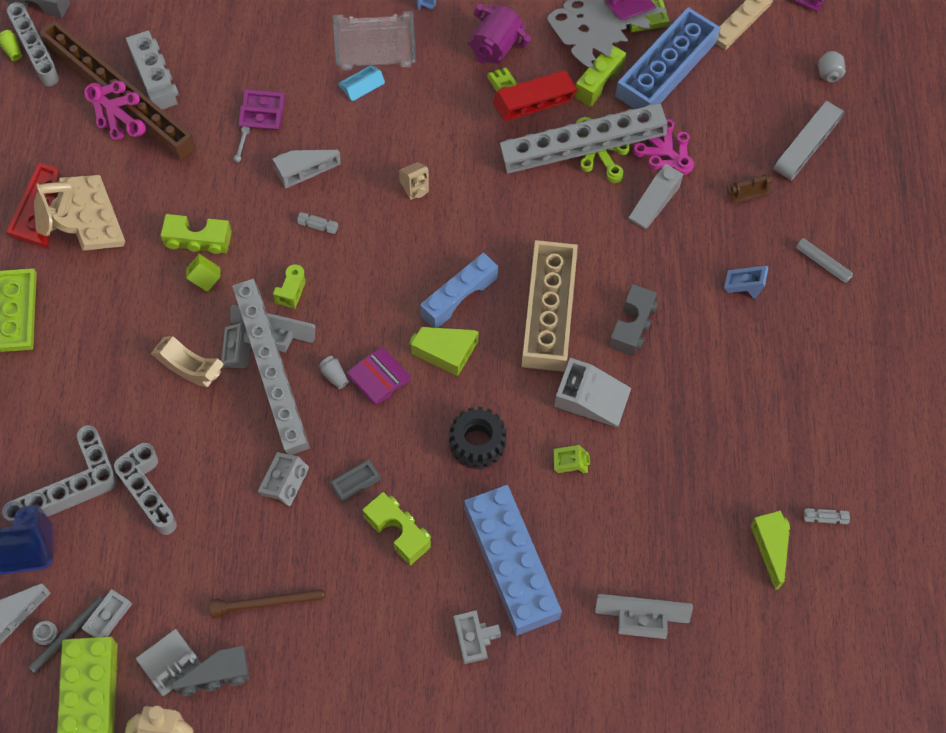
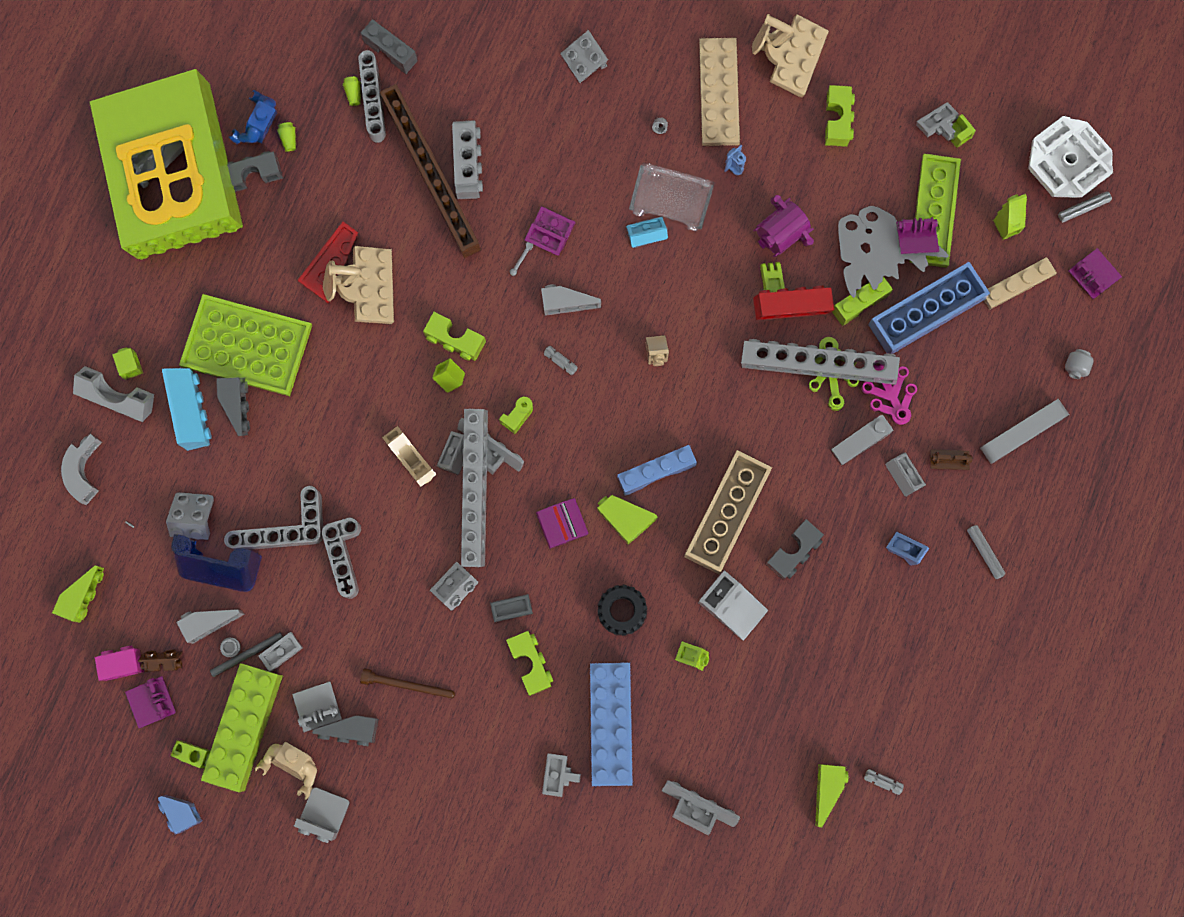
camera: 25 degrees right, 15 degrees up
(96, 94) = (410, 172): dark pink plant -> none
(333, 372) = (525, 505): light grey cone -> none
(711, 217) = (905, 474): none -> light grey slope

